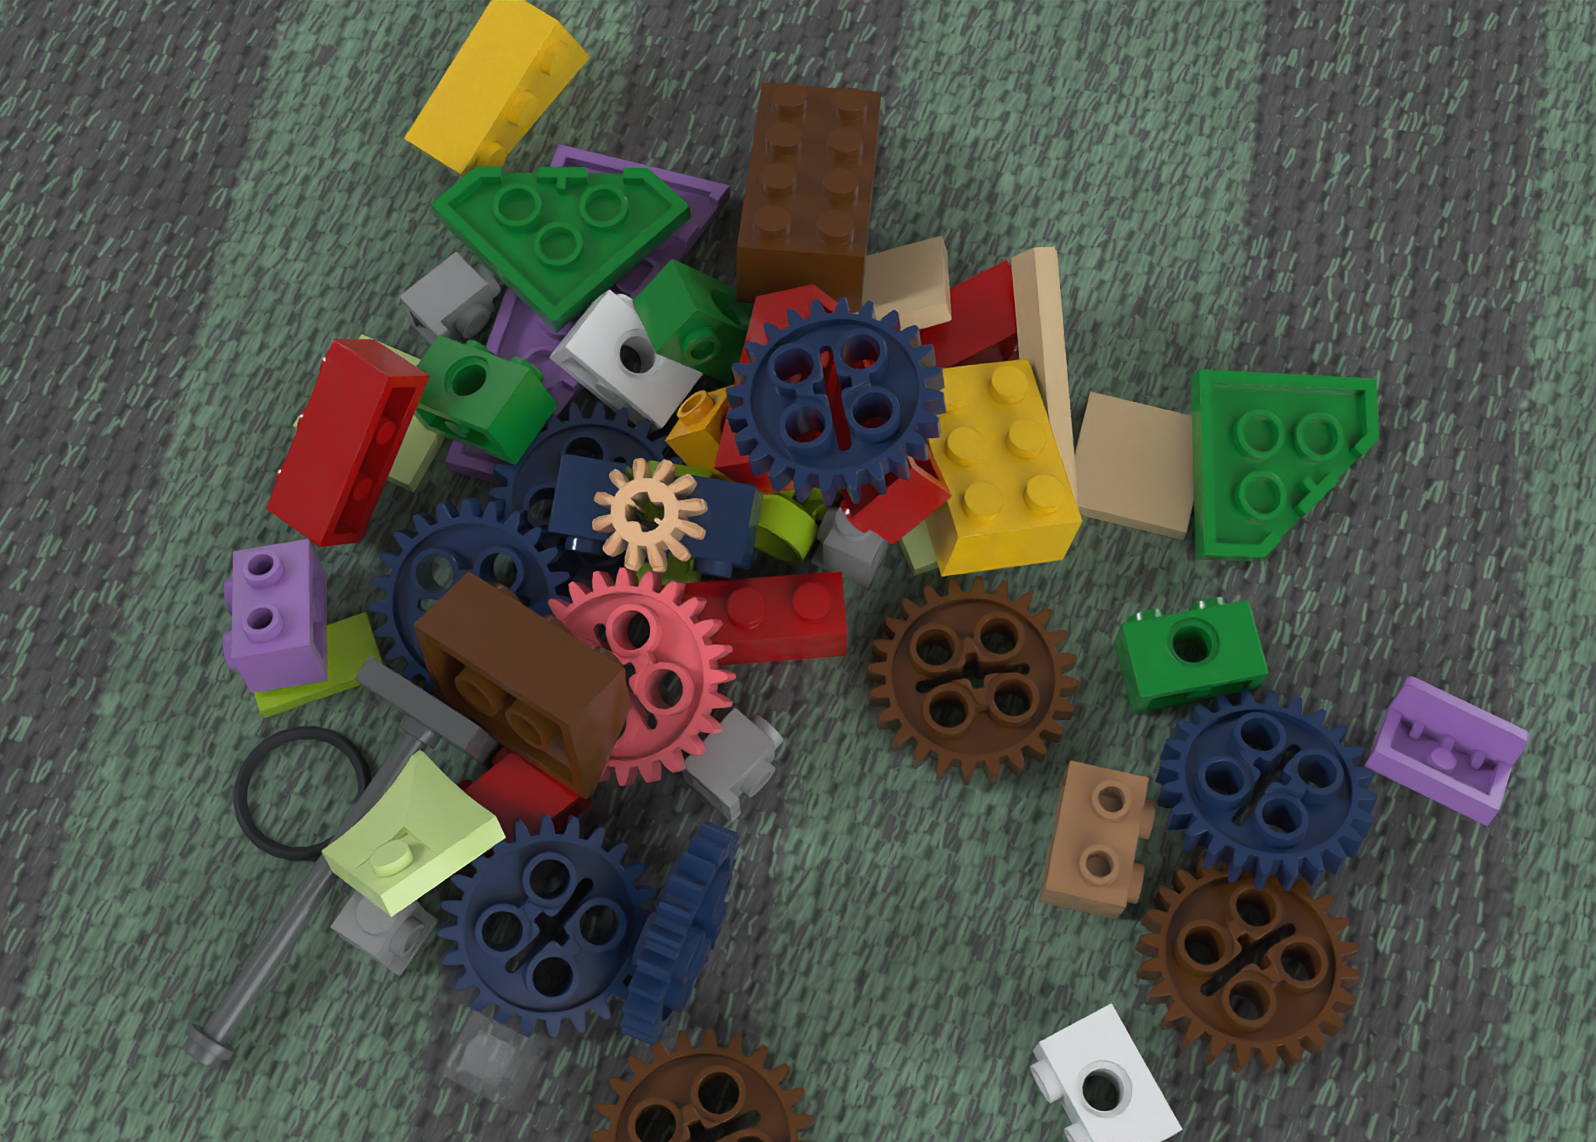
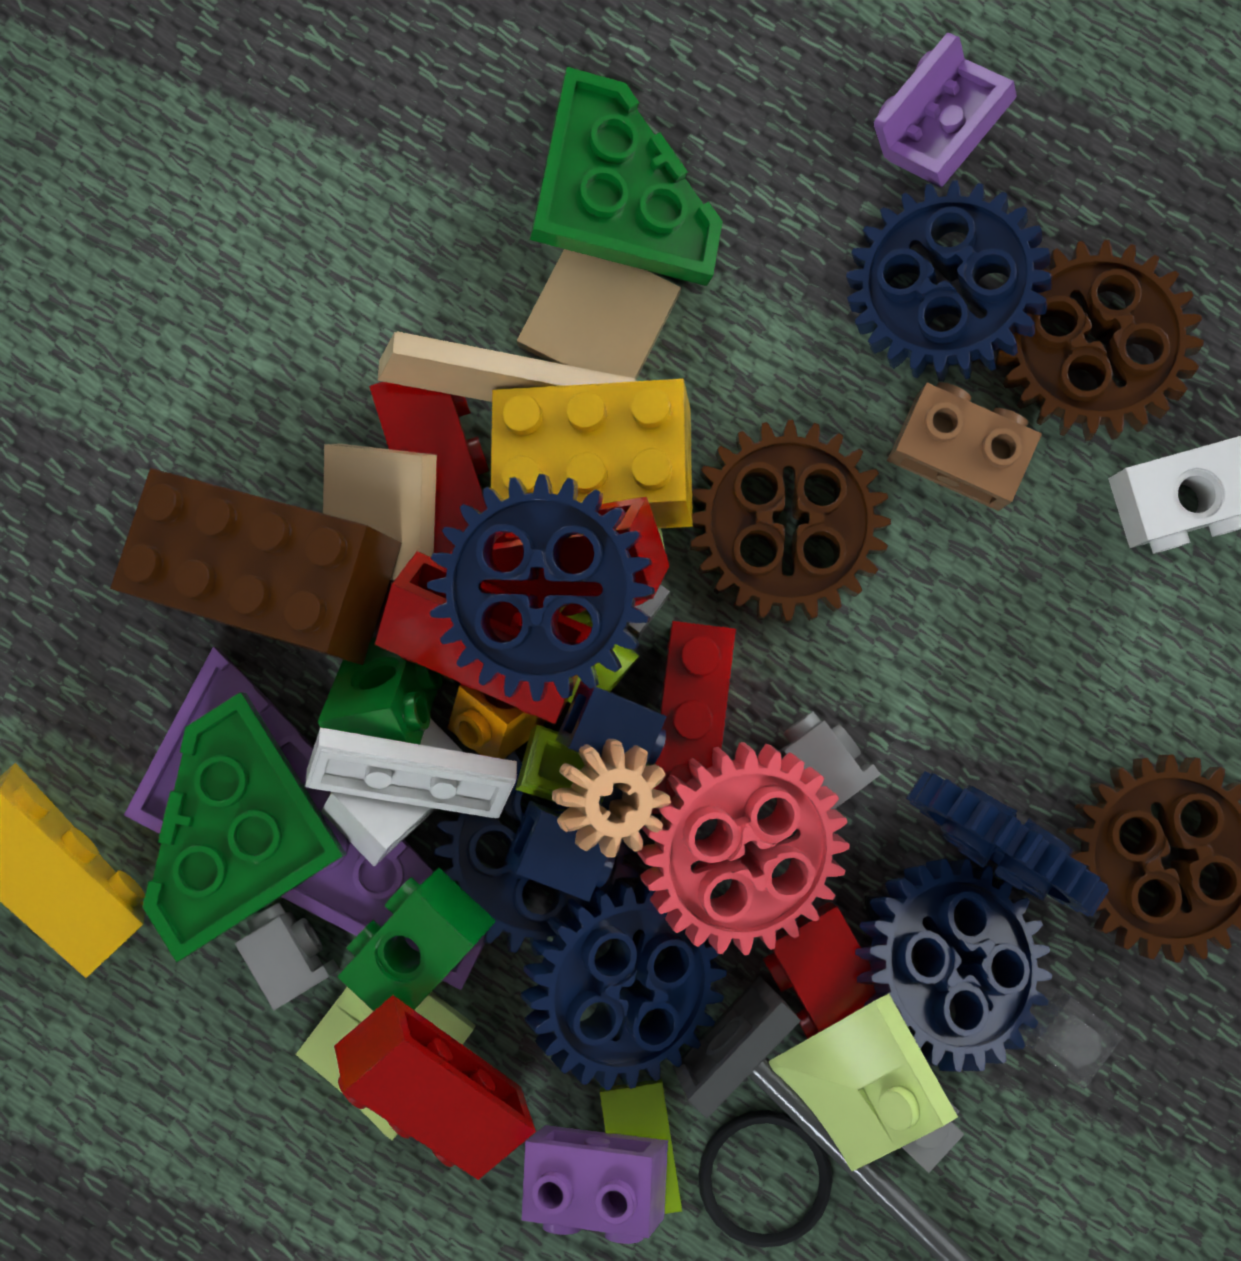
camera: 80 degrees left, 15 degrees up
(525, 680) = (737, 948): reddish brown slope -> none
(640, 352) = (410, 773): none -> white tile
(1162, 680) = (814, 280): green brick -> none

